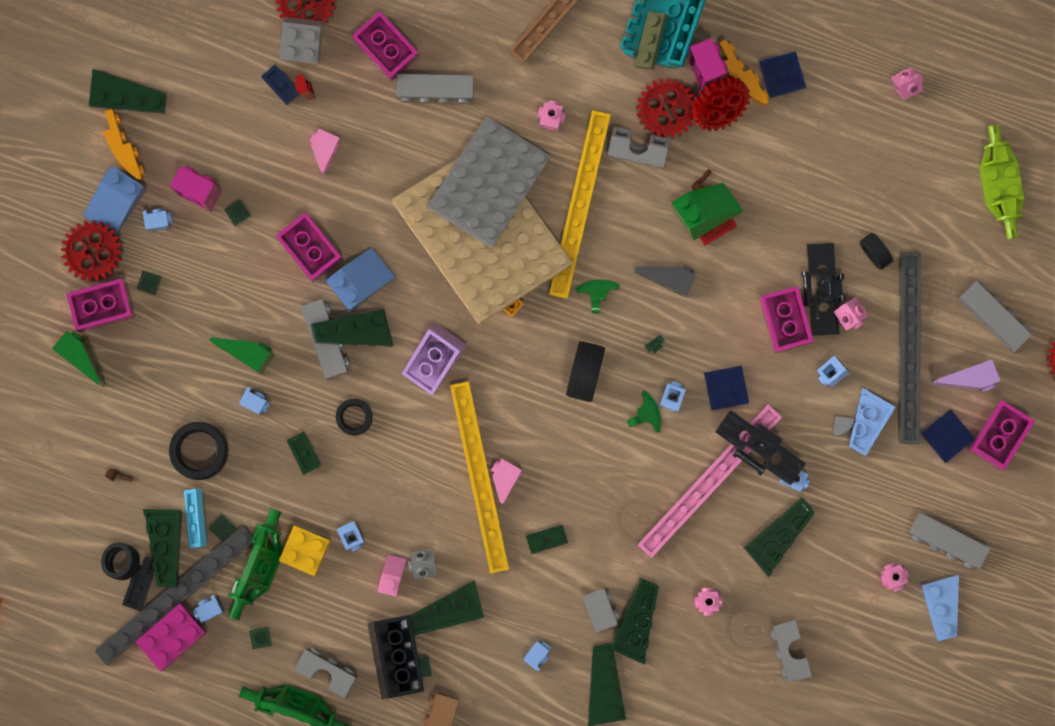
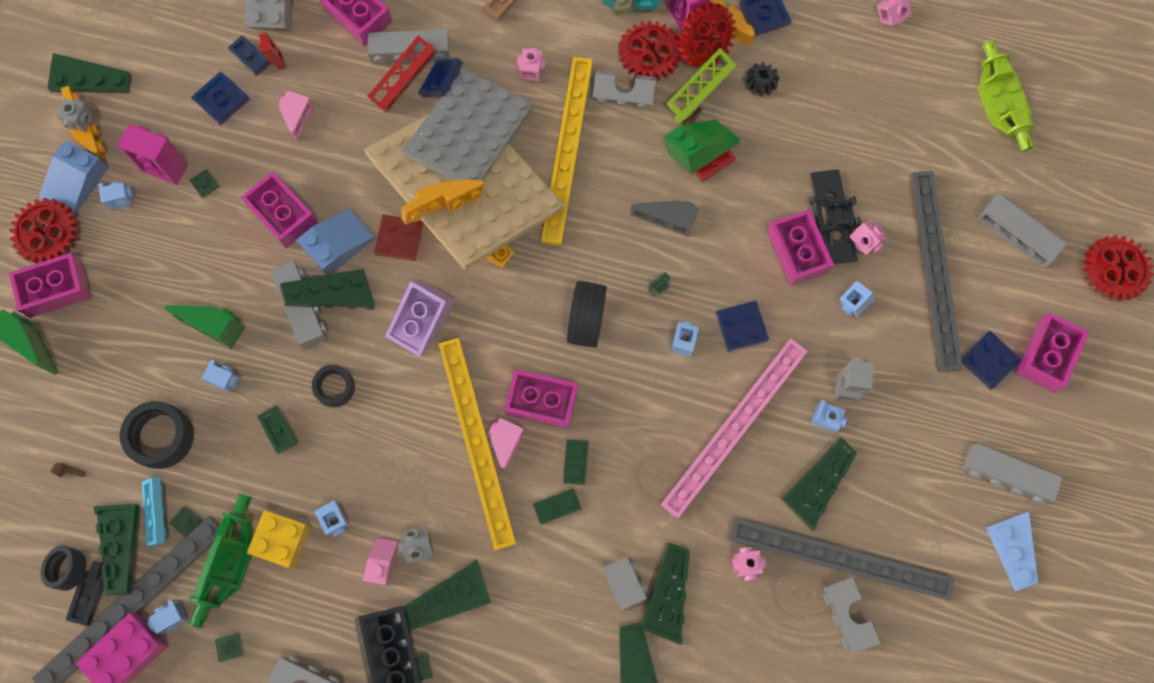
camera: 10 degrees left, 10 degrees down
(127, 148) = (75, 115): none -> light grey brick
(149, 283) = (107, 261): clear green plate -> none
(253, 128) = (220, 98): none -> clear blue plate
(417, 280) = (398, 239): none -> clear red plate
(433, 124) = (408, 76): none -> red fence
(464, 125) = (440, 78): none -> clear blue plate
(467, 254) = (448, 194): none -> light orange slope
(537, 655) = (555, 642): light blue brick -> none
(539, 444) = (541, 399): none -> dark pink brick
(566, 501) = (575, 462): none -> dark green plate
(597, 291) = (593, 236): green piece -> none
(648, 413) = (658, 359): green piece -> none
(714, 155) = (703, 91): none -> lime fence
(762, 442) = (792, 378): black piece -> none
(771, 153) = (755, 76): none -> black gear
(789, 603) = (842, 559): none -> dark grey plate
(817, 450) = (854, 380): none -> light grey arch
(842, 425) = (874, 354): light grey tile -> none
(869, 422) = (903, 349): light blue wing -> none
(876, 251) = (887, 171): black tyre -> none
(887, 580) = (957, 519): bright pink brick -> none
(974, 378) = (1010, 294): lavender slope -> none

